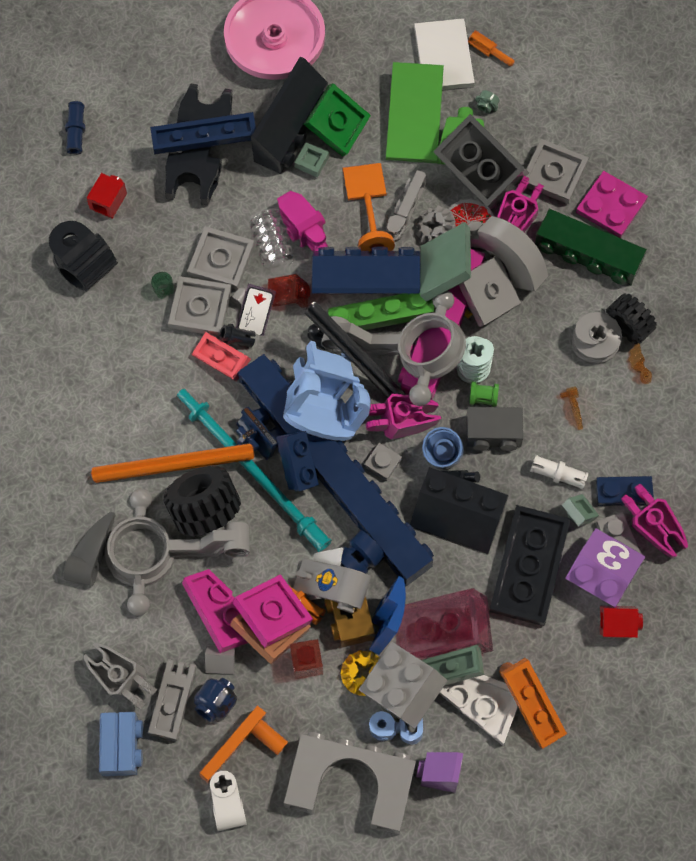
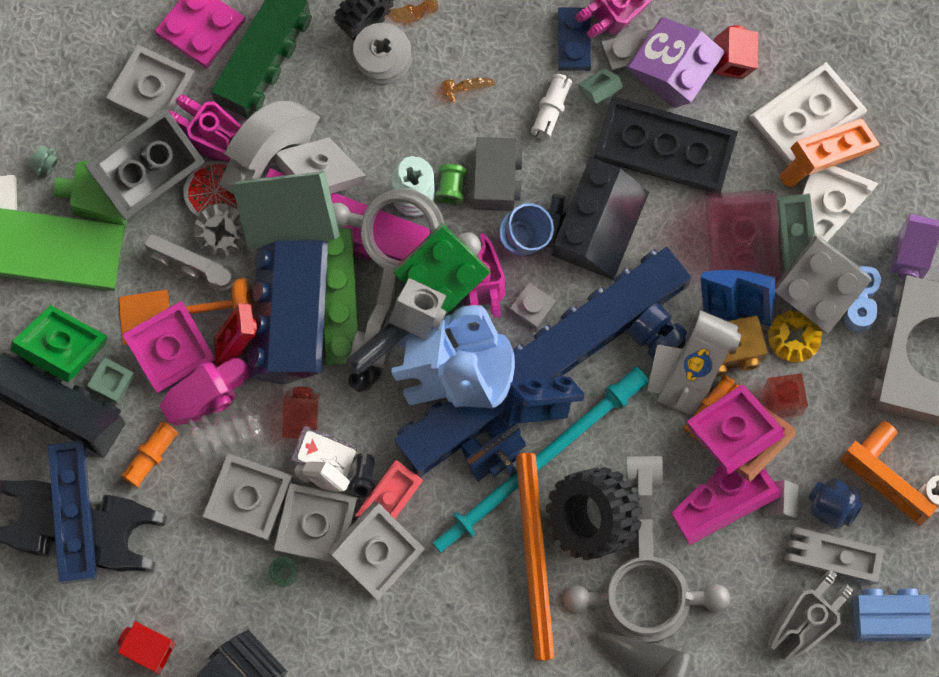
camera: 90 degrees left, 5 degrees up
(177, 346) = (376, 550): none -> light grey plate
(234, 307) = (325, 476): none -> white tile
(253, 189) = (149, 454): none -> orange pin
(338, 194) = (168, 346): none -> dark pink plate
(345, 237) = (234, 334): none -> red plate
(371, 351) = (418, 309): none -> light grey brick
(396, 374) = (444, 266): none -> green plate
(572, 688) = (807, 109): none -> white tile

